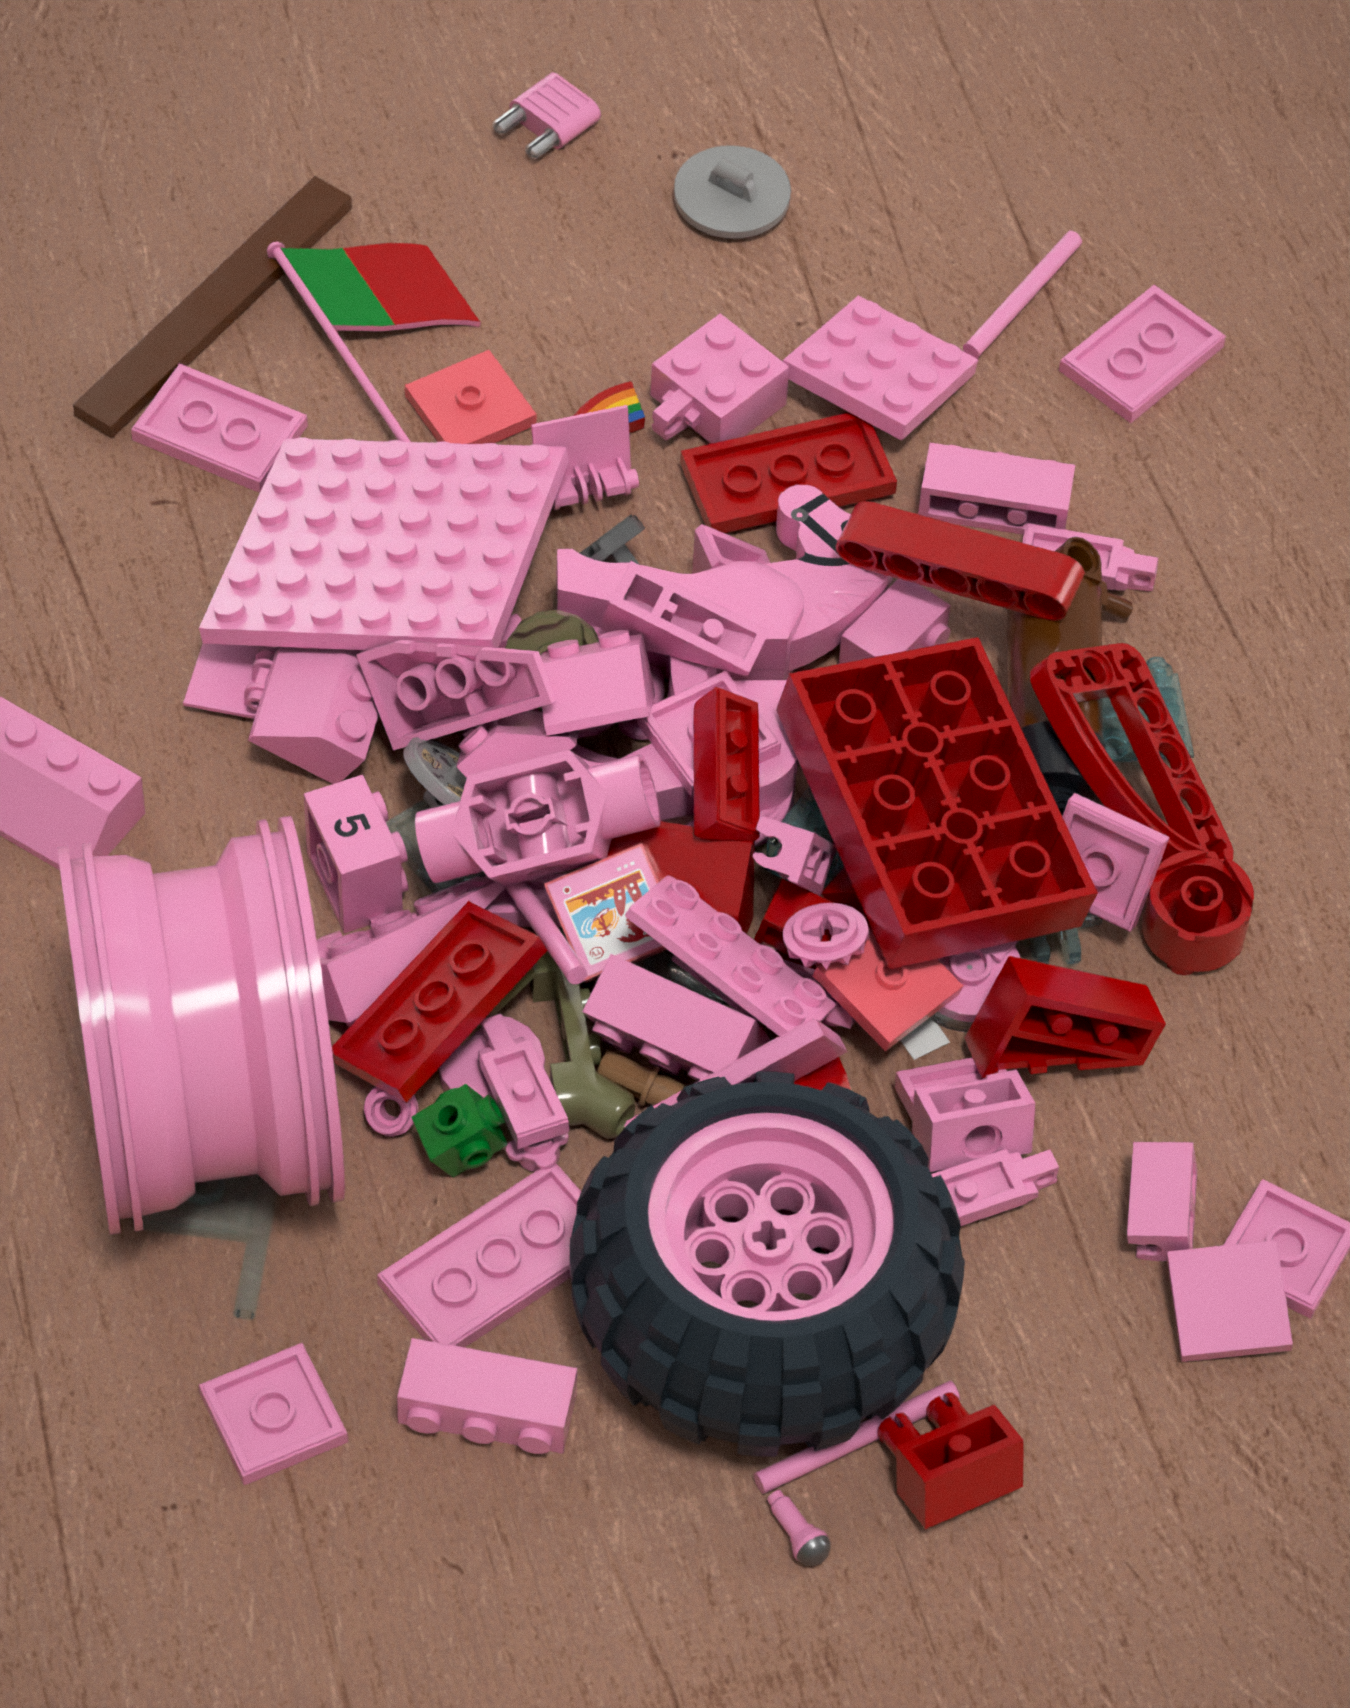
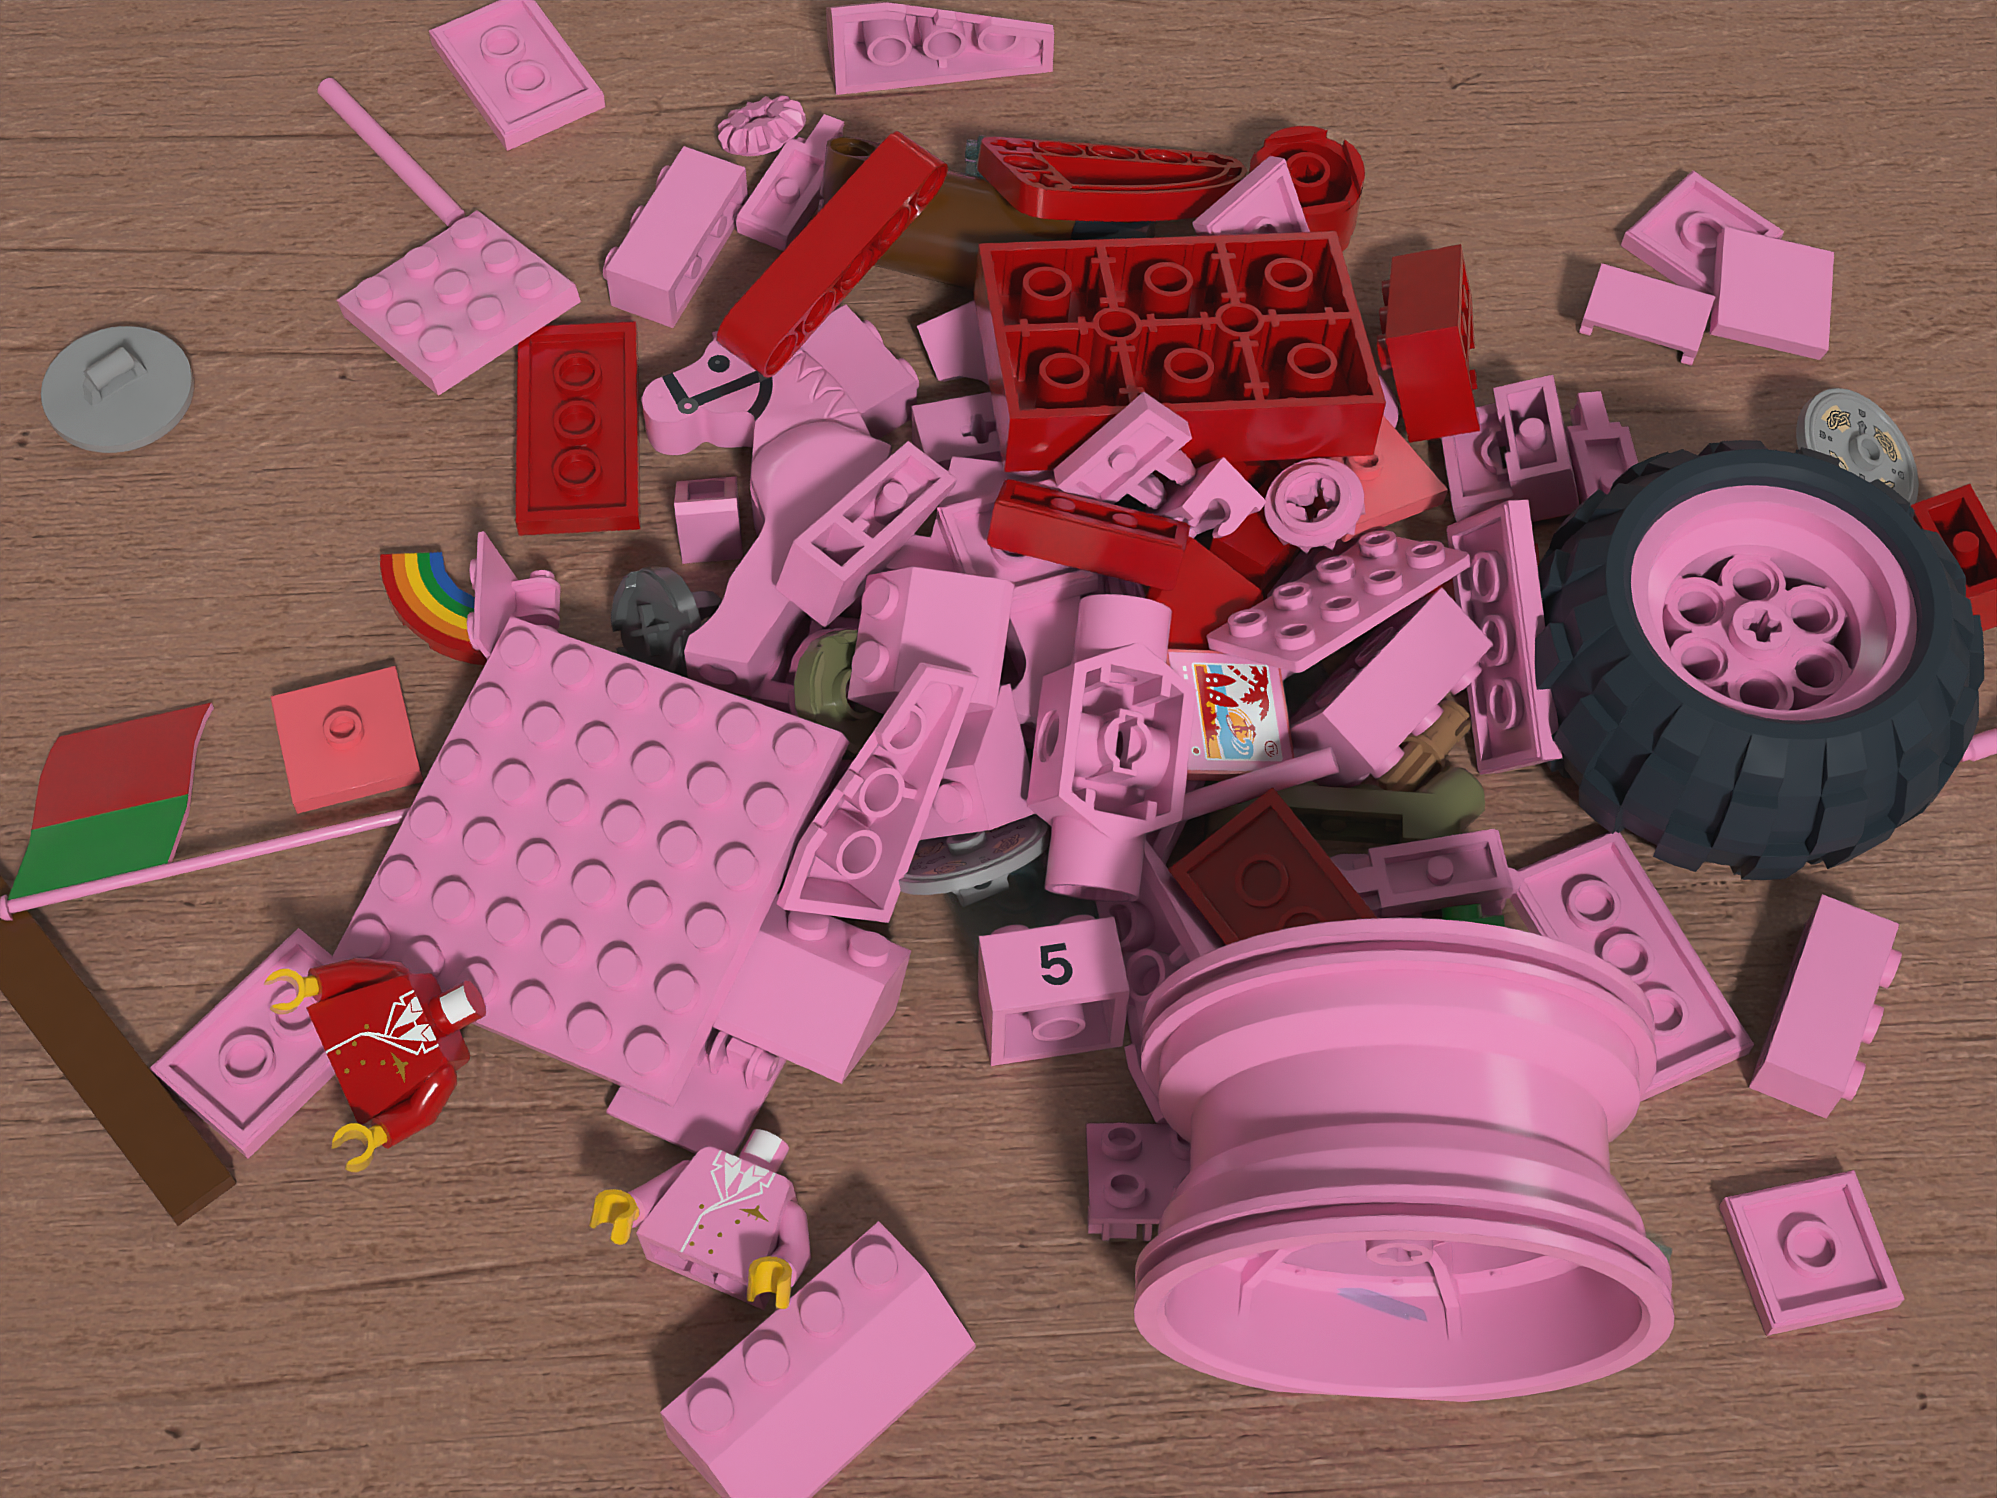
camera: 75 degrees left, 5 degrees up
(132, 698) = (719, 1221): none -> bright pink torso
(215, 474) = (388, 1042): none -> red torso
(717, 384) = (427, 461): bright pink hinge -> none
(801, 775) = (1125, 454): none -> bright pink hinge
(1054, 1376) = (1861, 437): none -> light grey shield
(1134, 522) = (761, 126): none -> bright pink gear
(1259, 596) = (913, 46): none -> bright pink wedge

